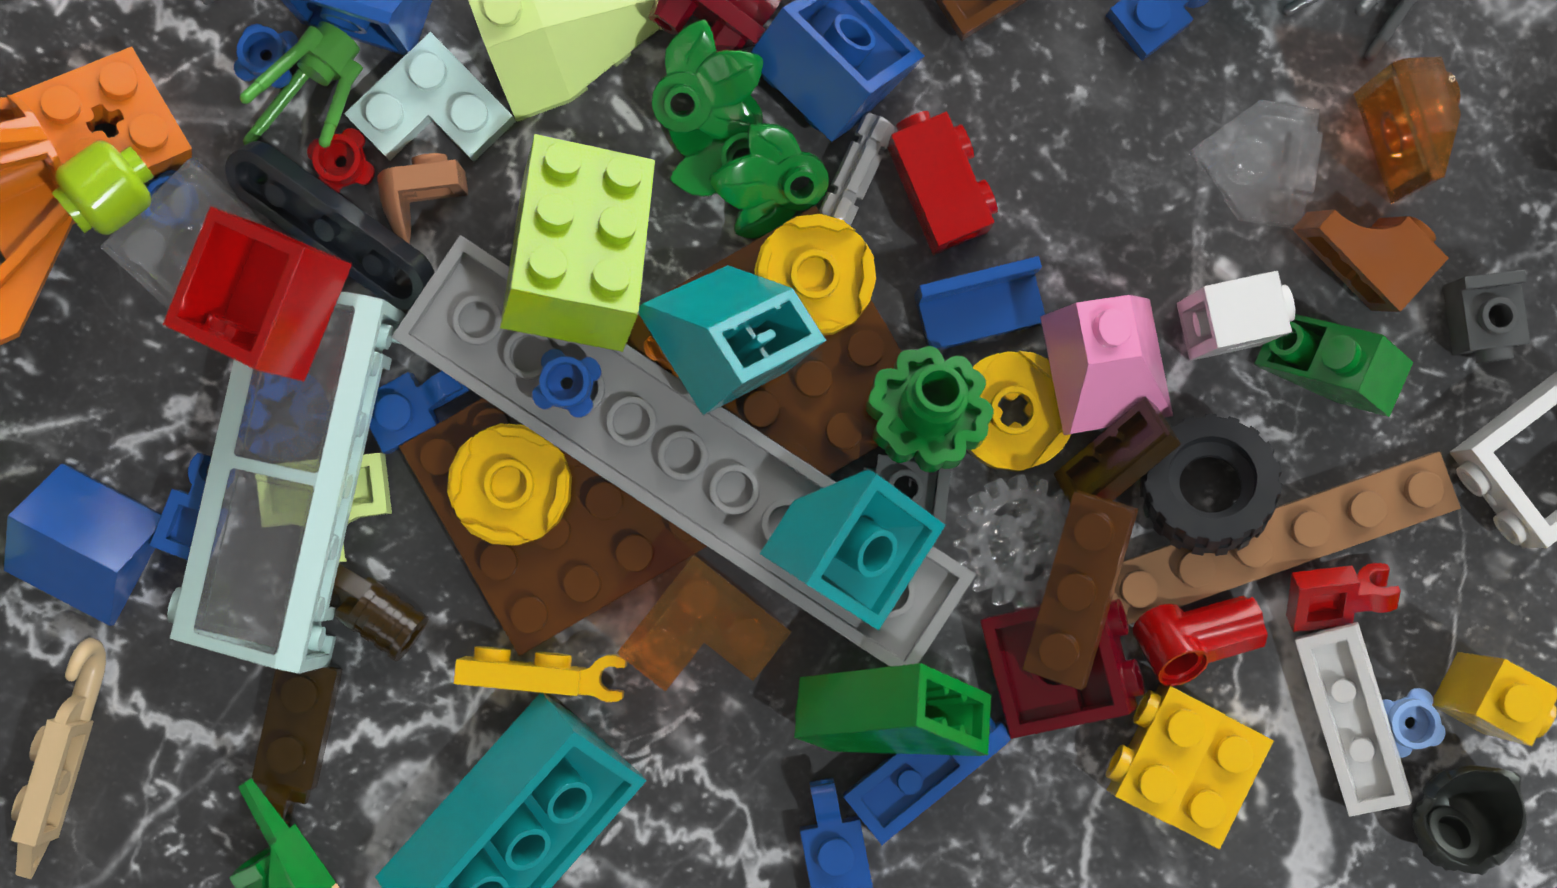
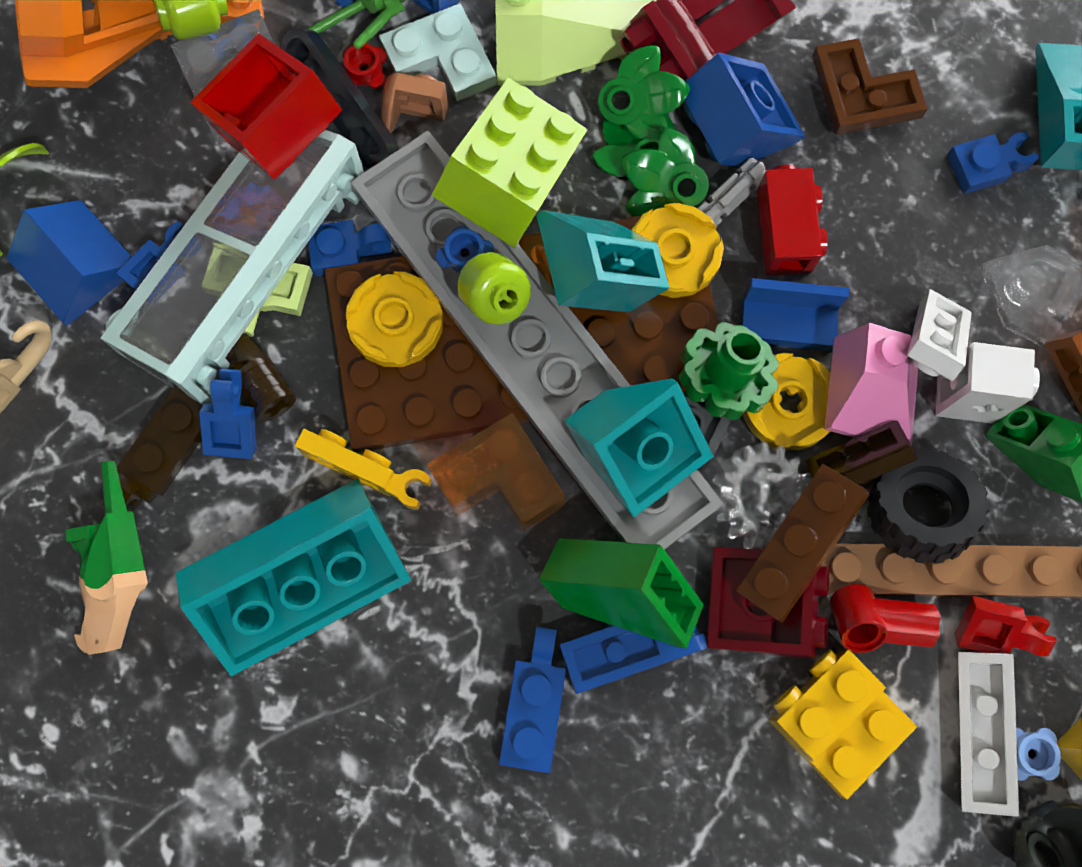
camera: 20 degrees right, 10 degrees down
(357, 682) = (225, 425): none -> blue plate
(619, 422) = (494, 288): none -> lime head
(1164, 277) = (940, 336): none -> white plate

